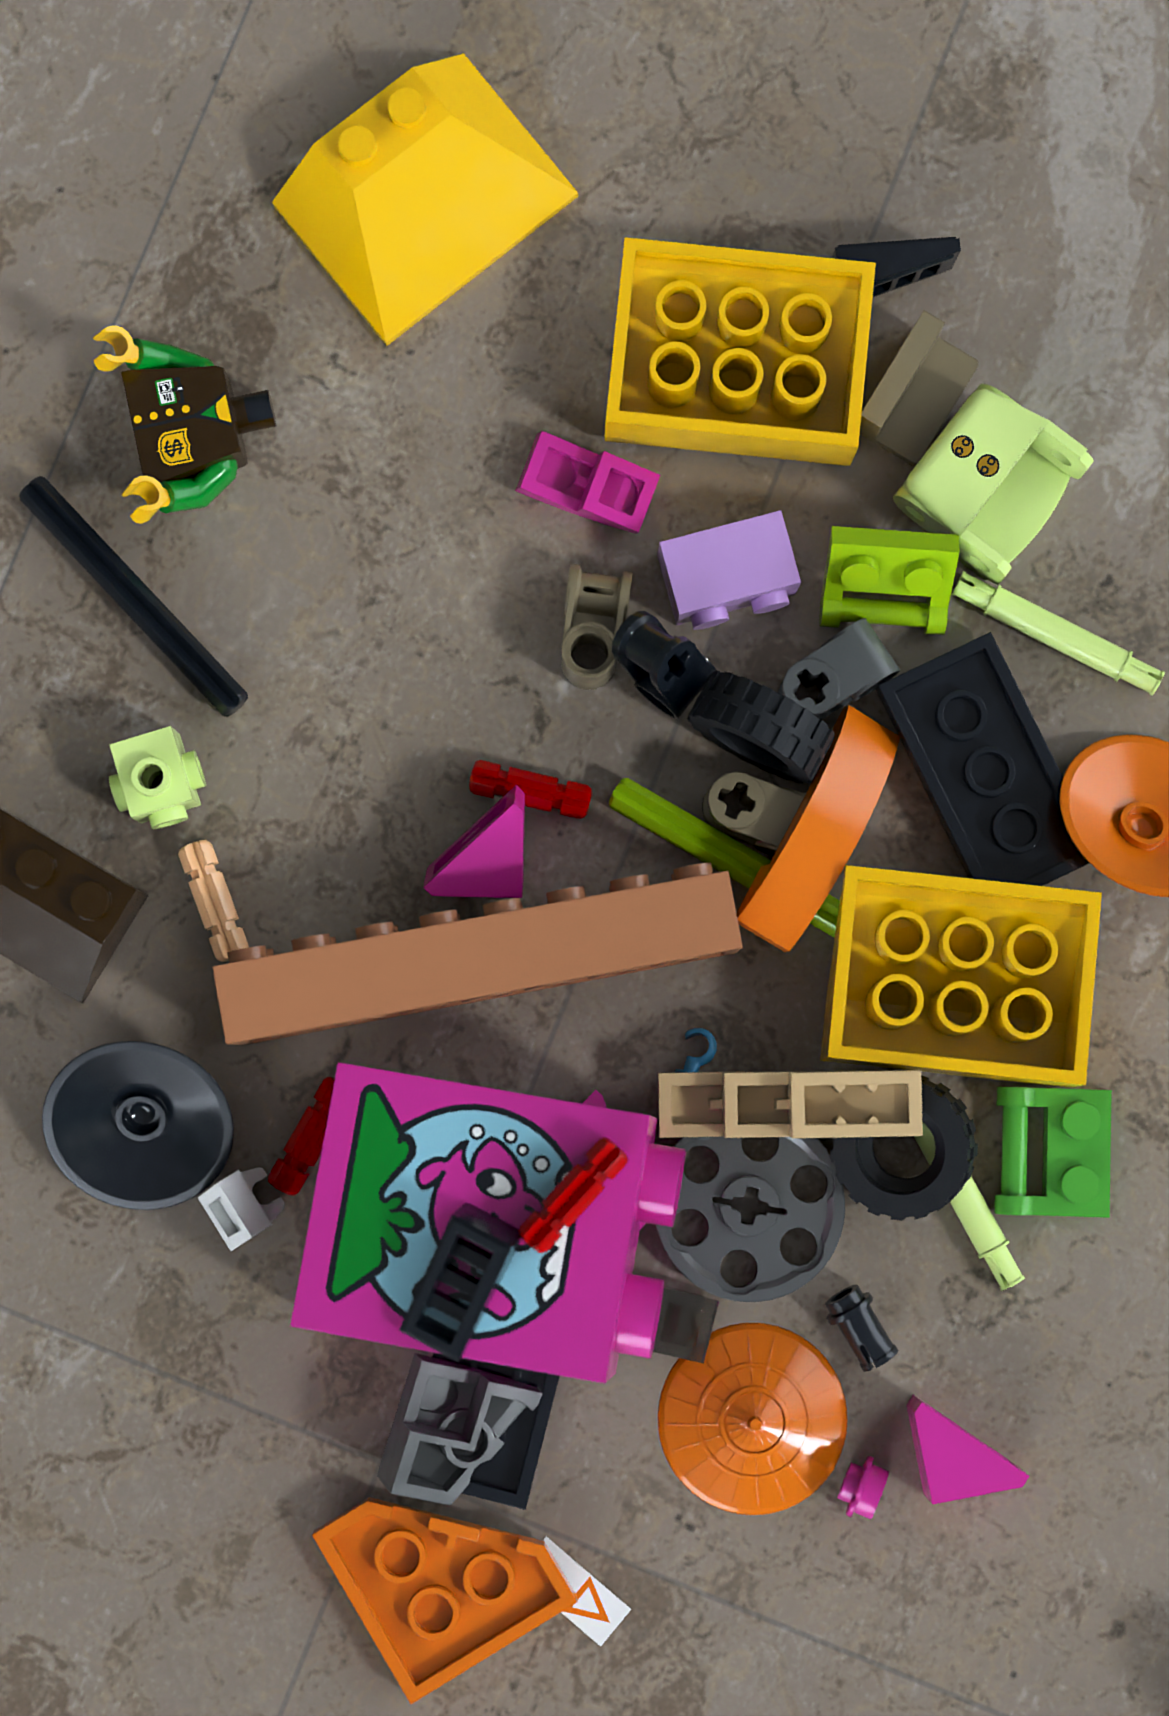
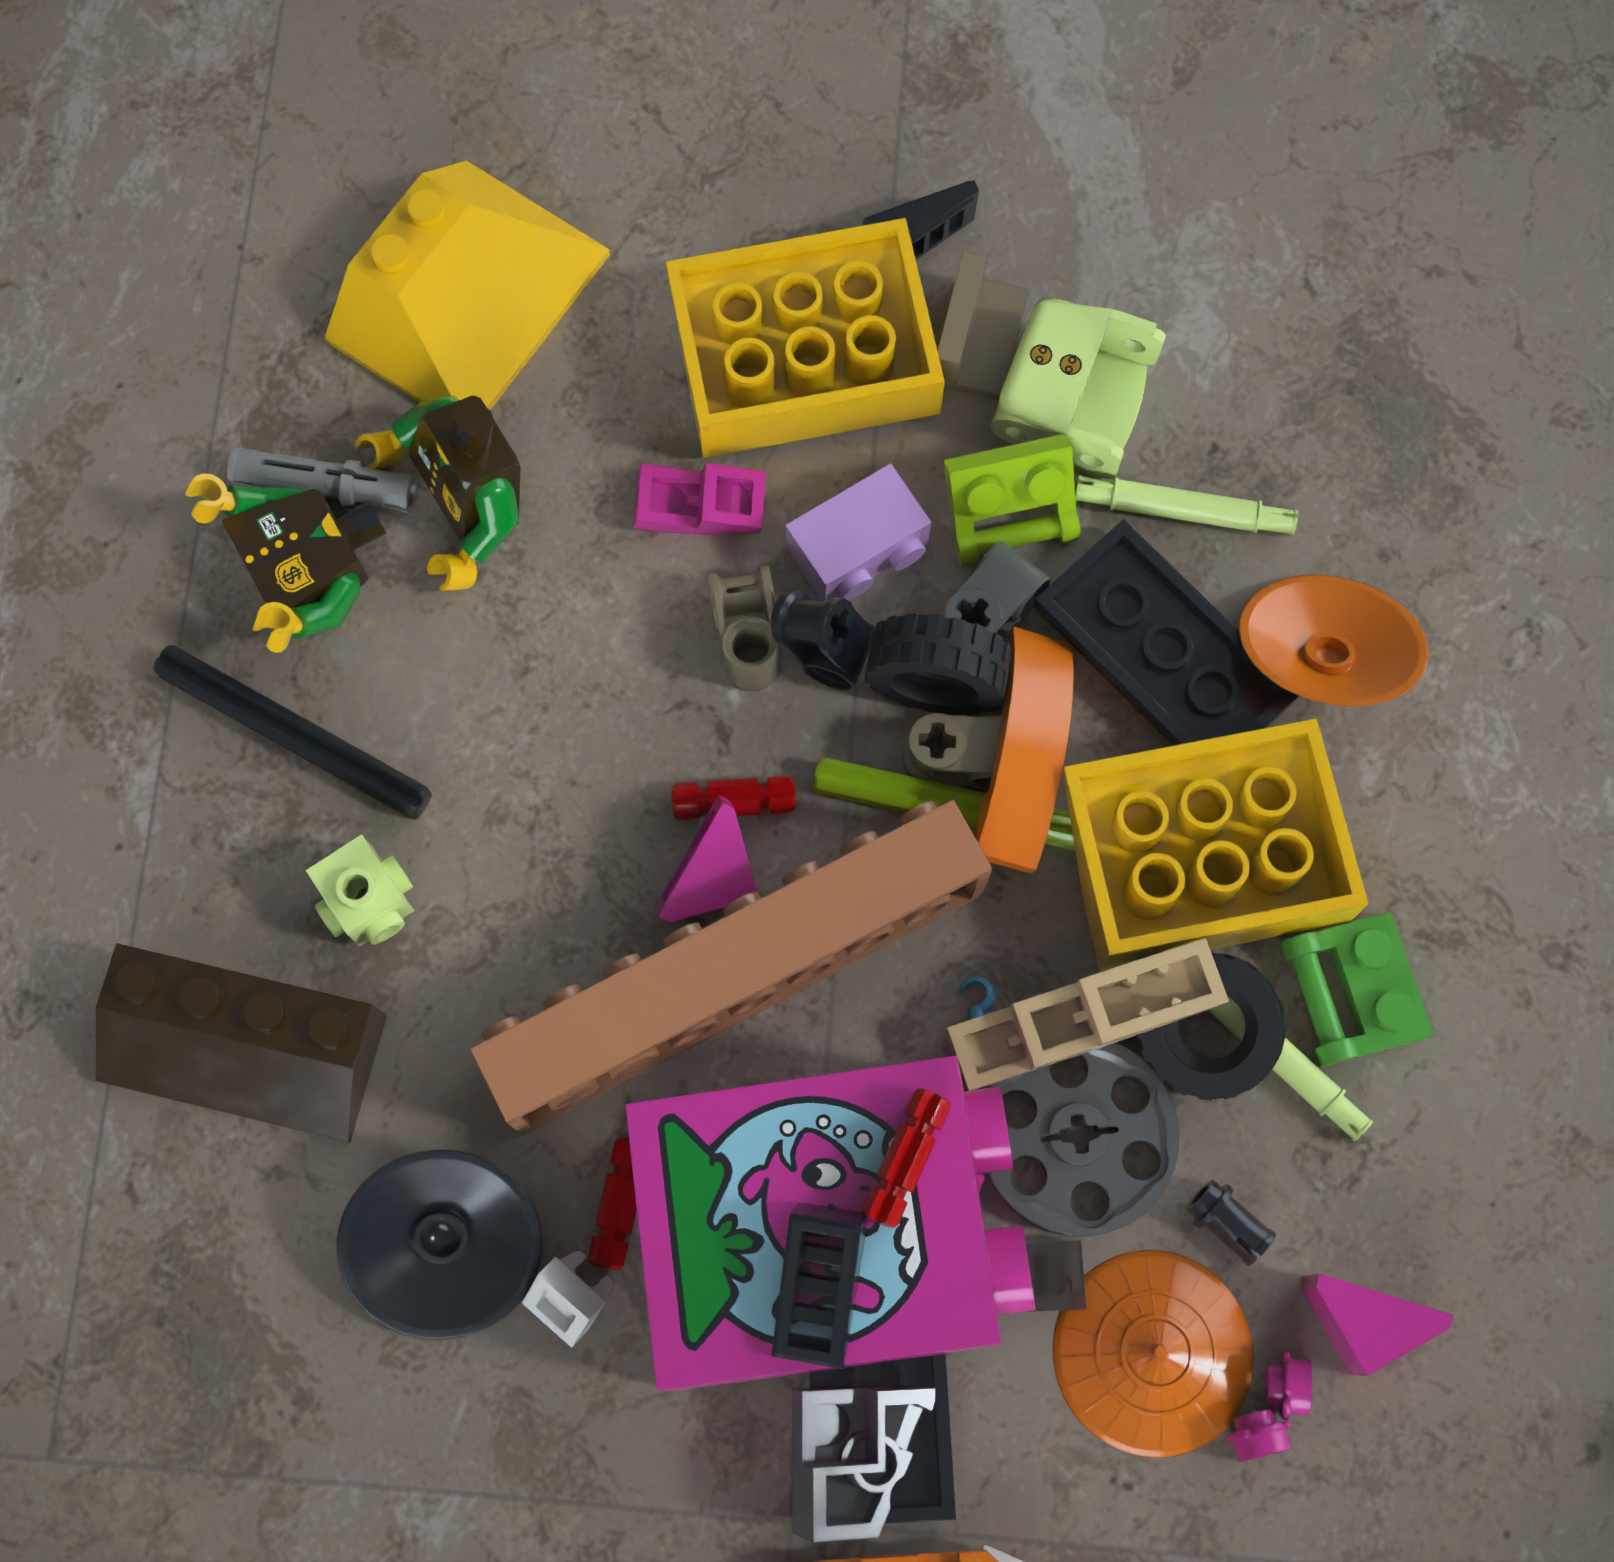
camera: 15 degrees left, 10 degrees down
(212, 898) = (448, 993): light nougat axle -> none
(251, 362) = (346, 482): none -> light grey pin
(369, 390) = (467, 472): none -> torso
(820, 1522) = (1259, 1435): none -> dark pink plate

